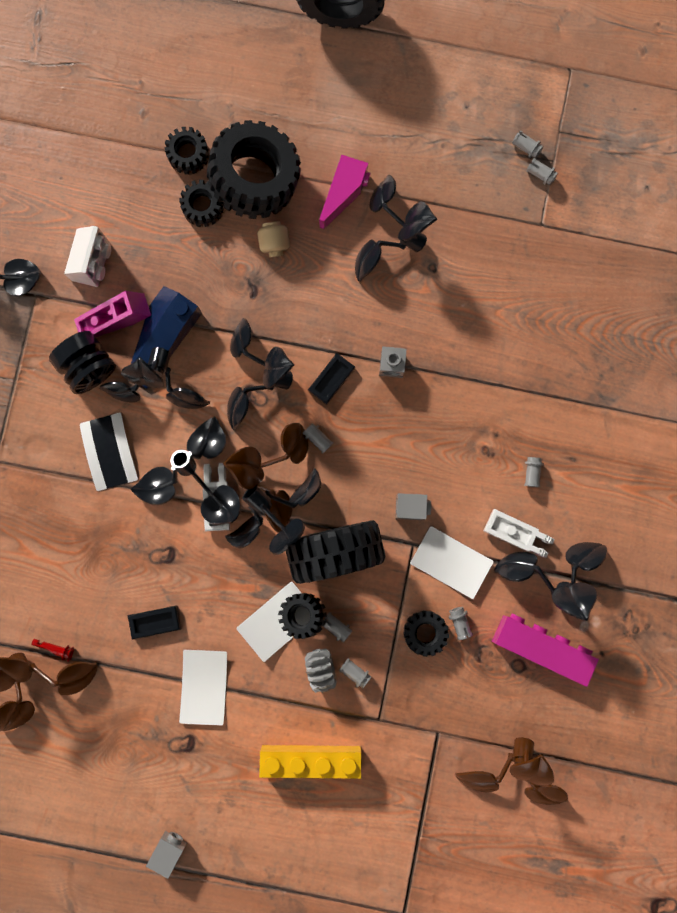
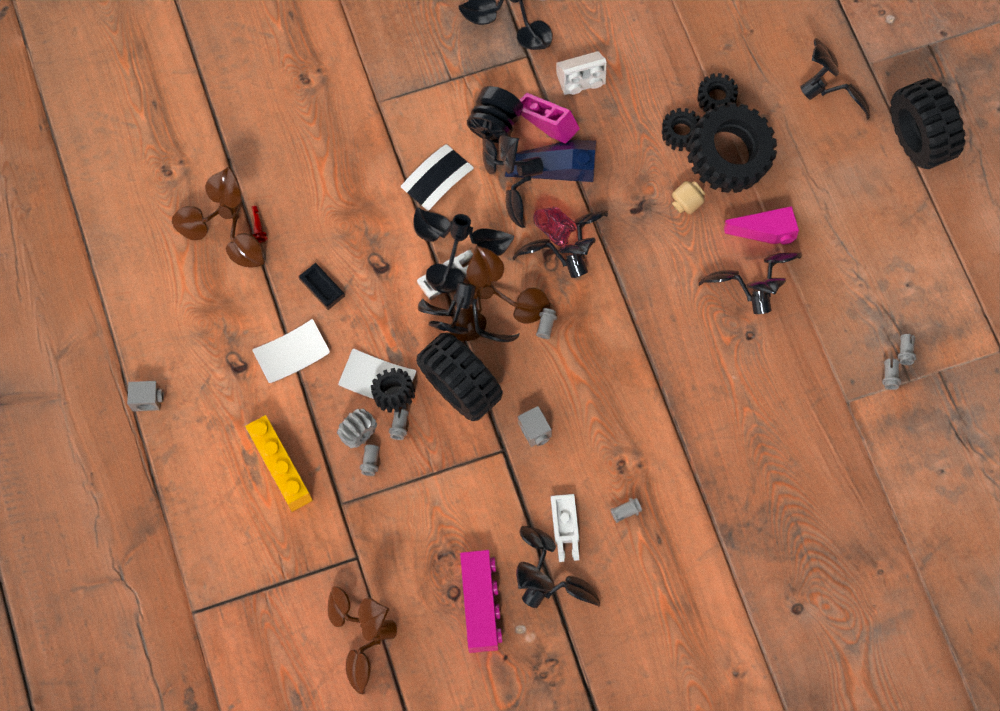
camera: 65 degrees right, 15 degrees down
(226, 373) = (554, 224): none -> clear pink piece
(233, 57) = (817, 83): none -> black plant
(331, 378) = (602, 308): black tile -> none
(392, 362) = (646, 344): light grey brick -> none
(439, 640) = (446, 507): black tyre -> none
(451, 562) = (508, 487): white sticker -> none
(460, 622) = (462, 519): light grey pin -> none

